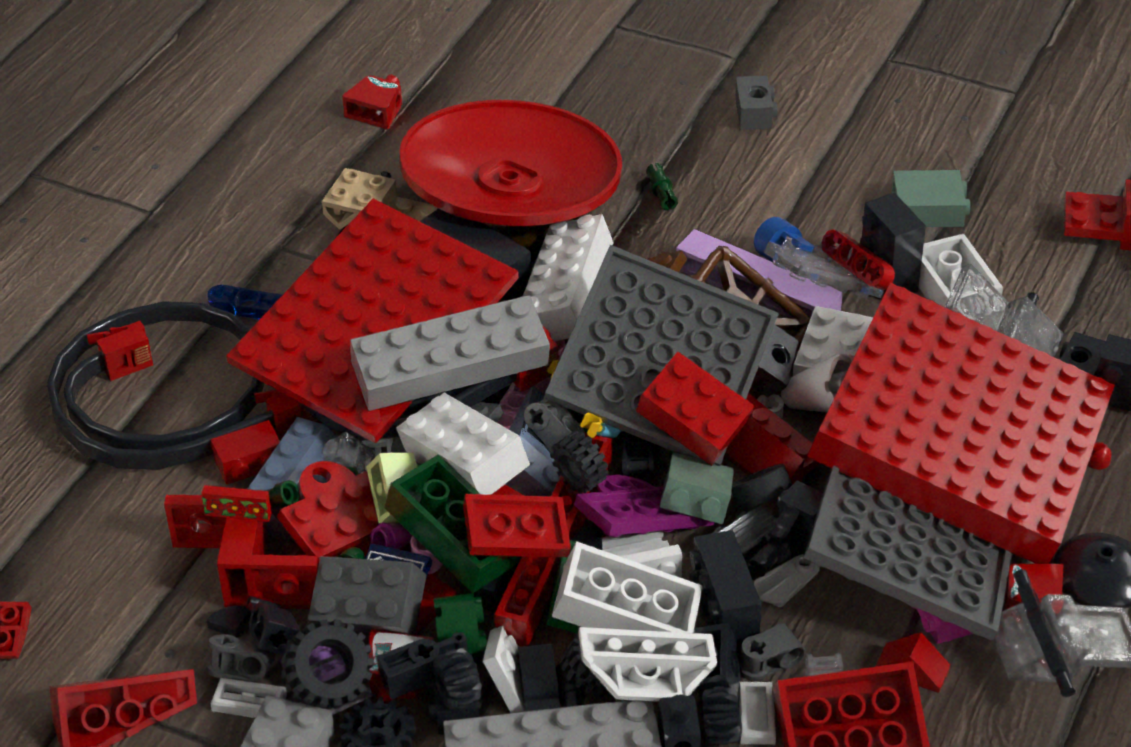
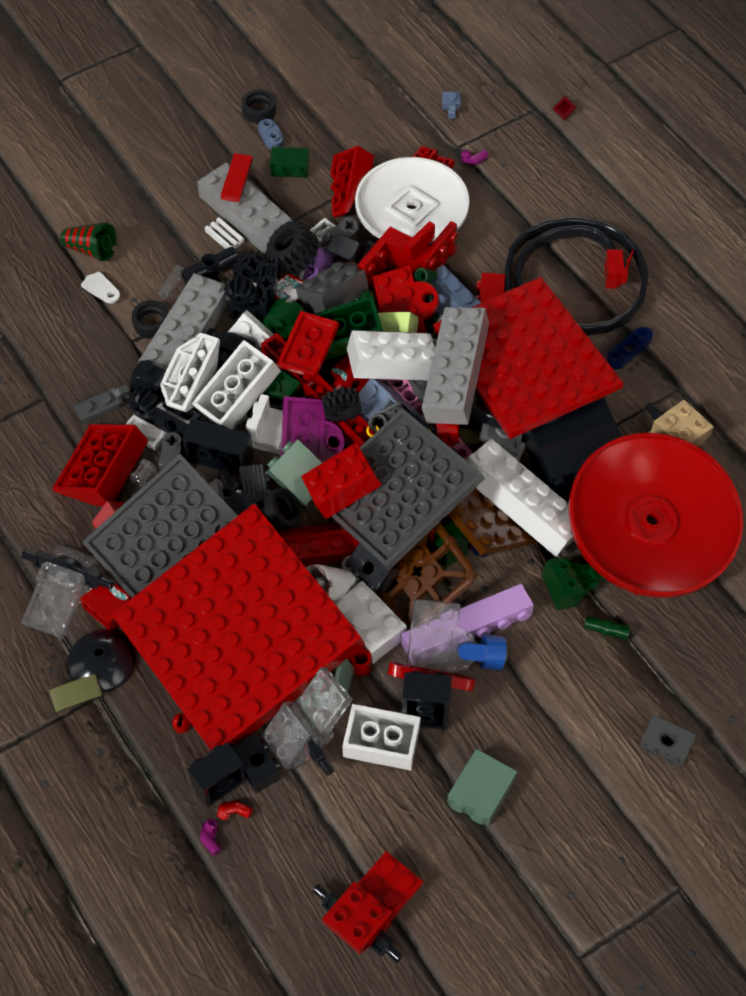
camera: 120 degrees right, 15 degrees up
(85, 583) = (411, 181): none -> white dish
(636, 224) = (569, 581): none -> dark green brick

